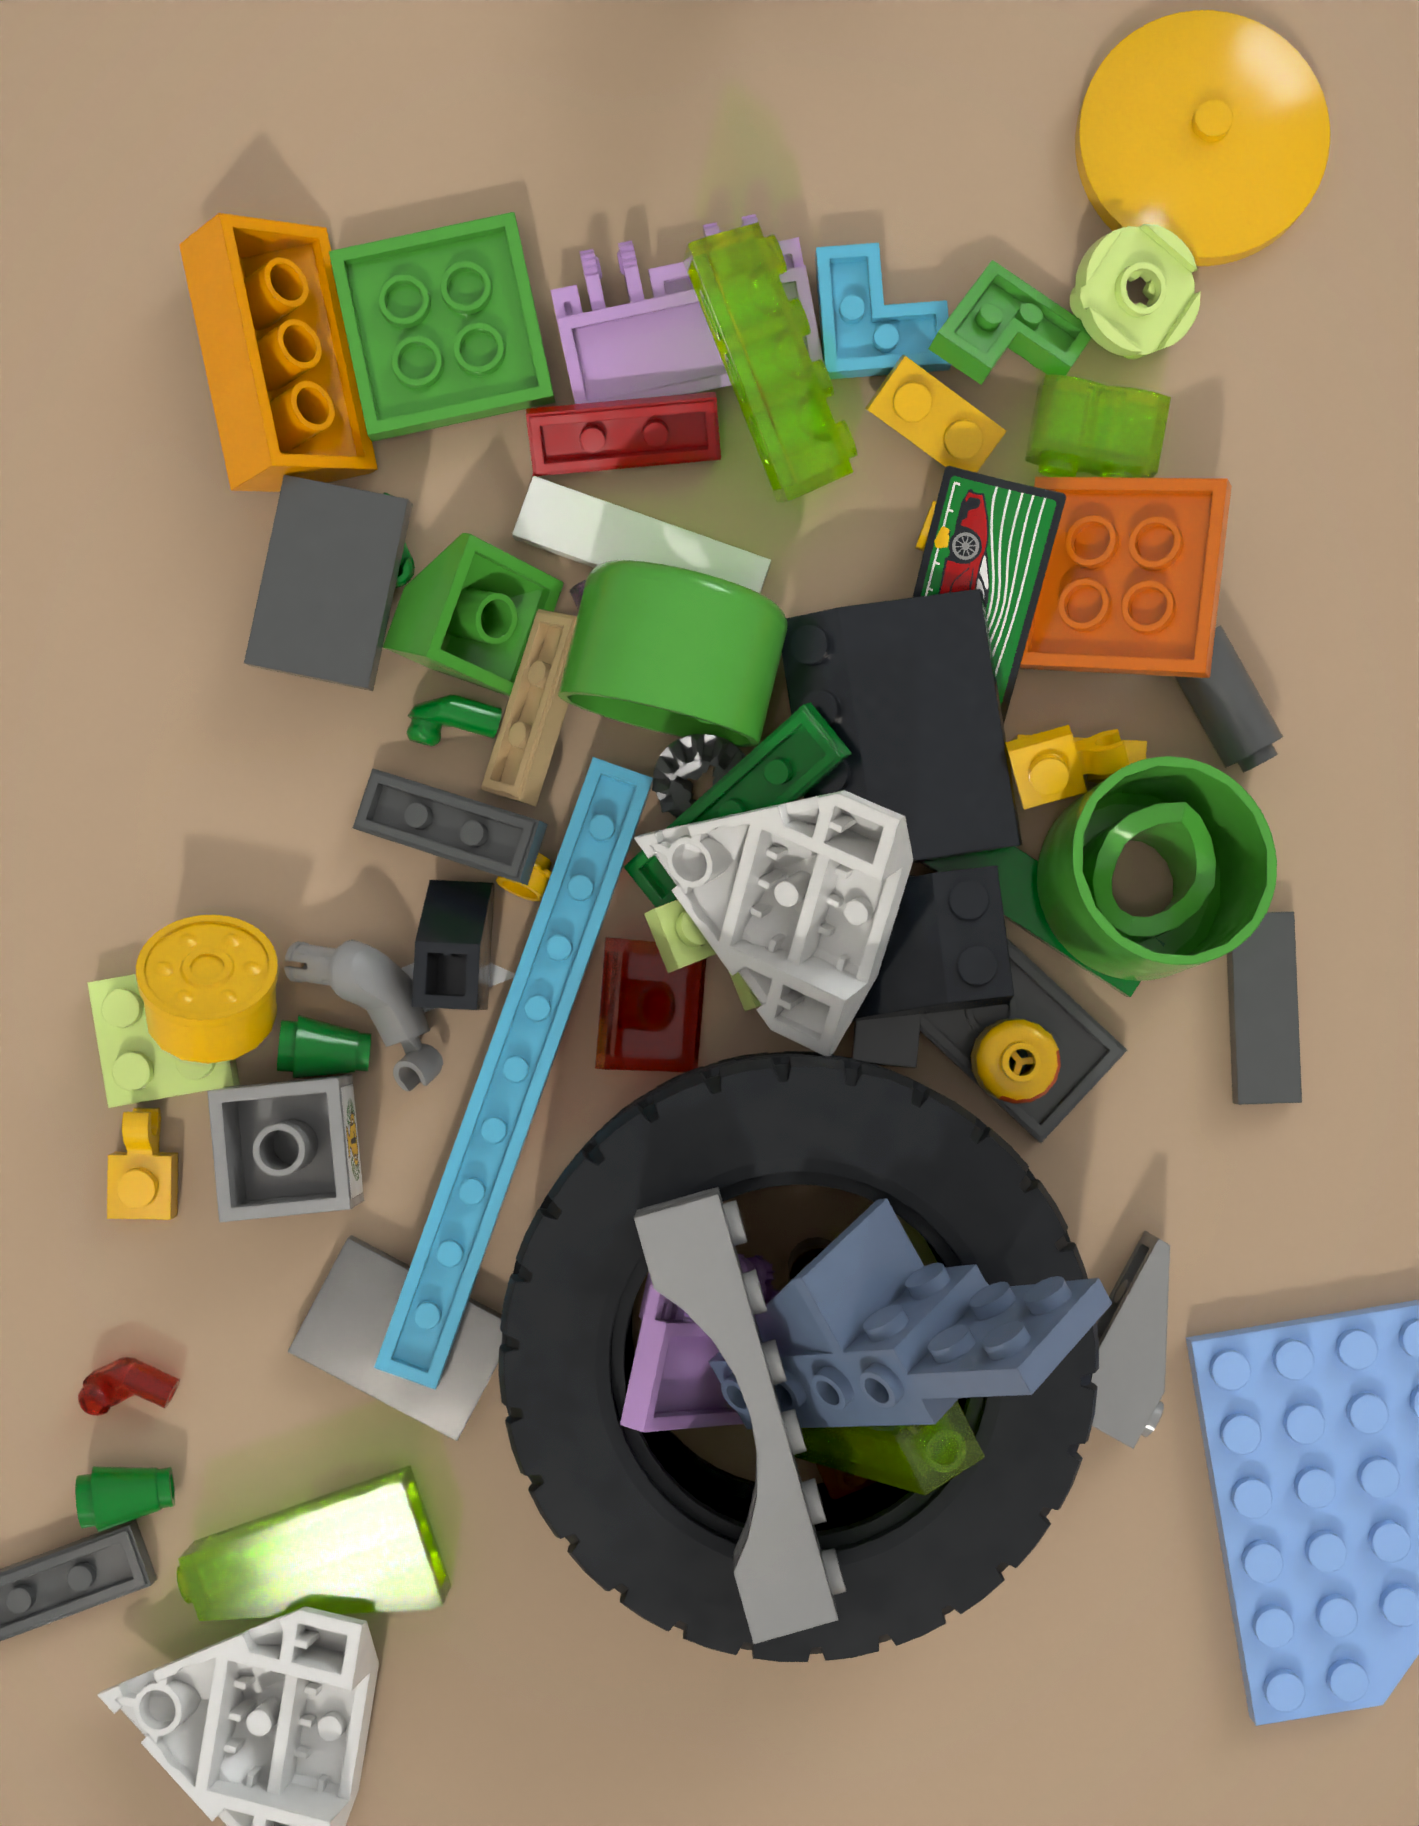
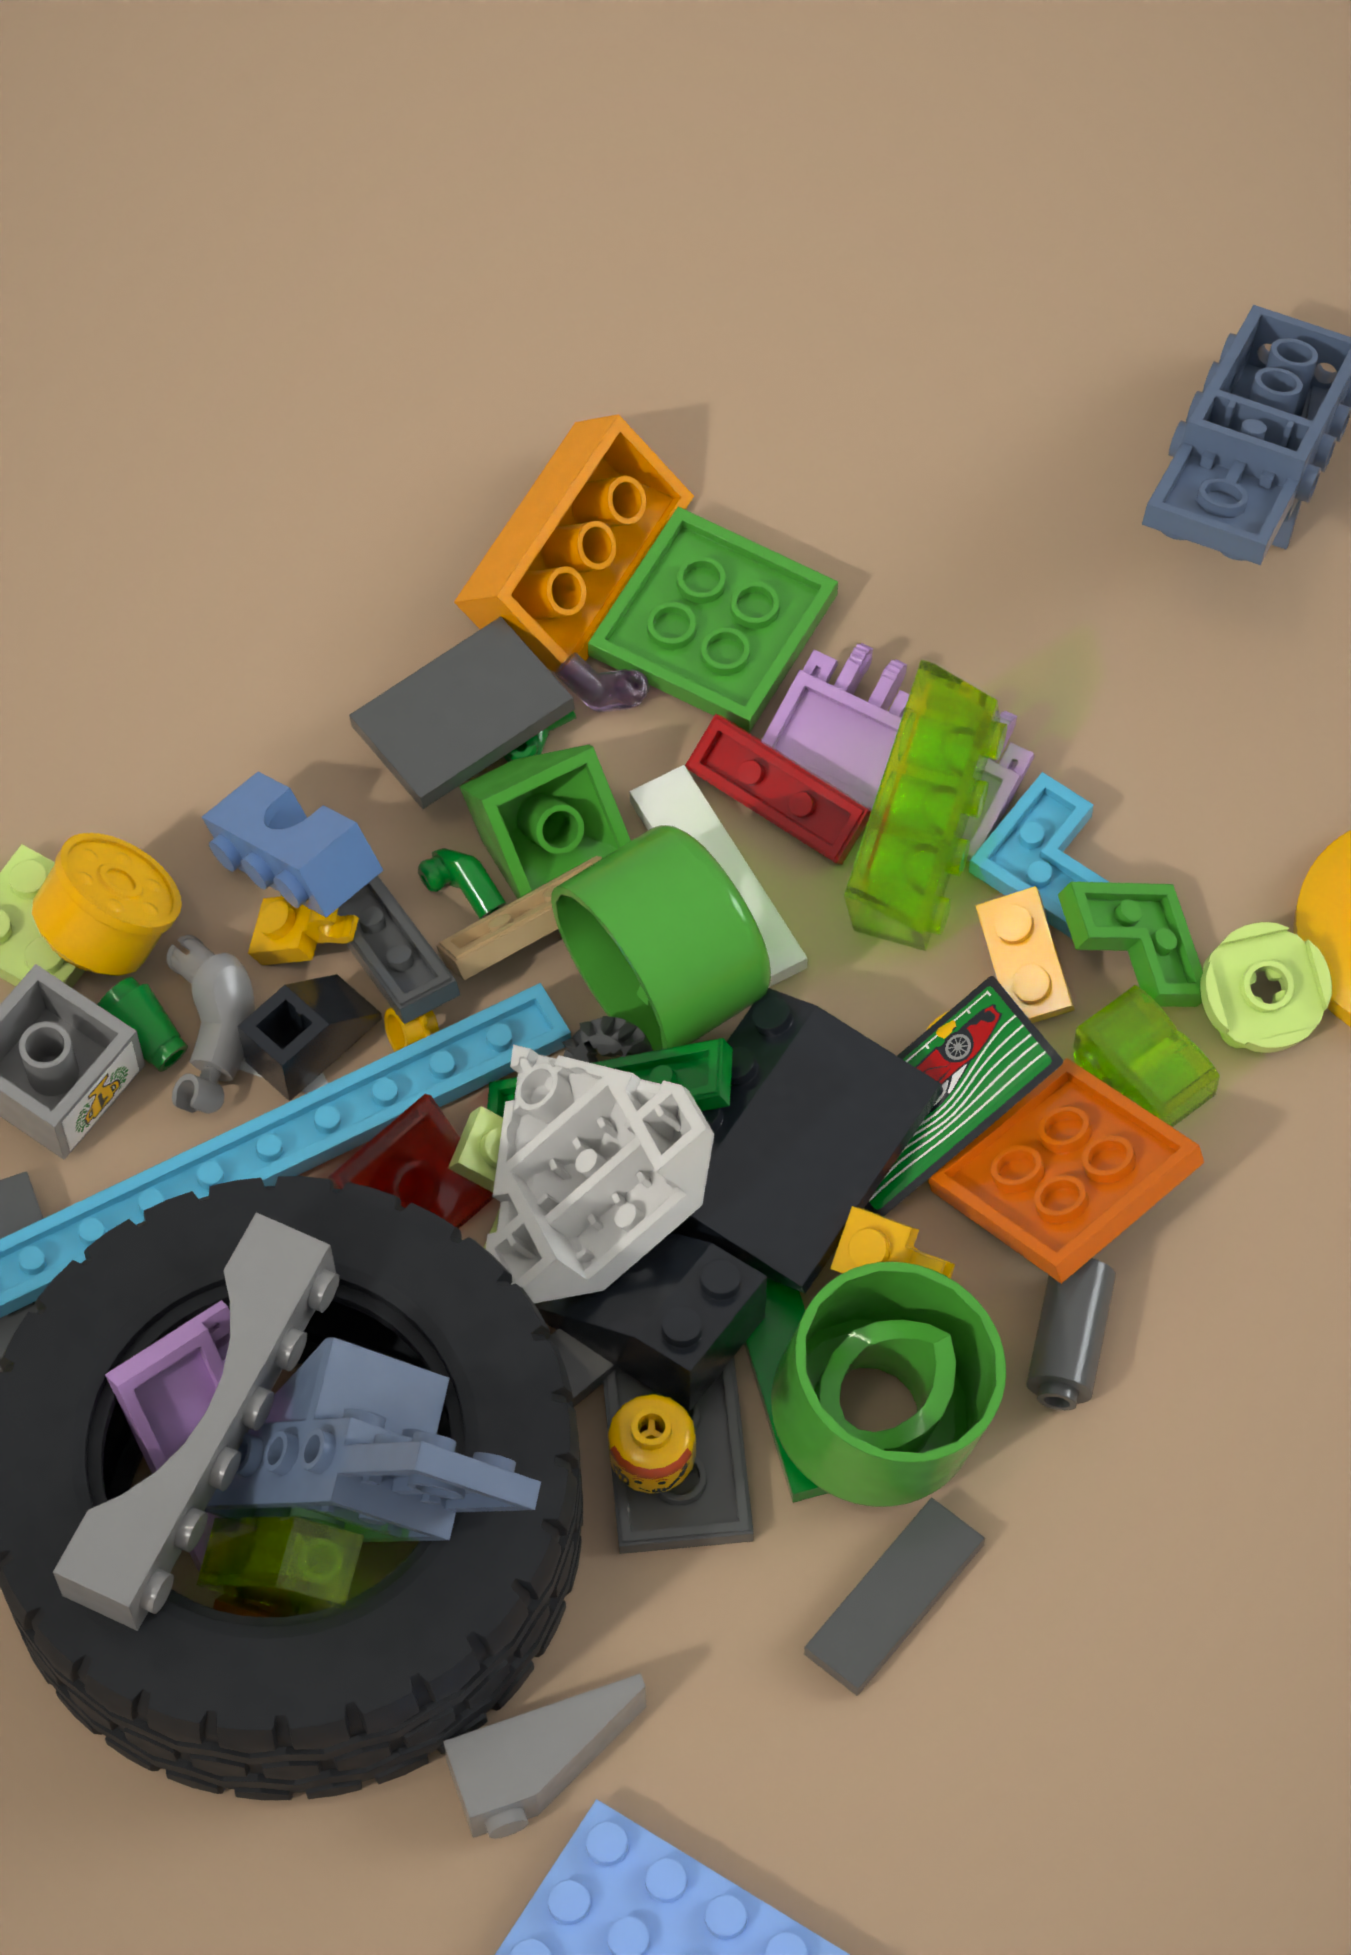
camera: 40 degrees right, 25 degrees down
(344, 819) = (271, 839): none -> medium blue arch
(363, 868) = (292, 933): none -> yellow plate
(411, 462) = (603, 690): none -> arm

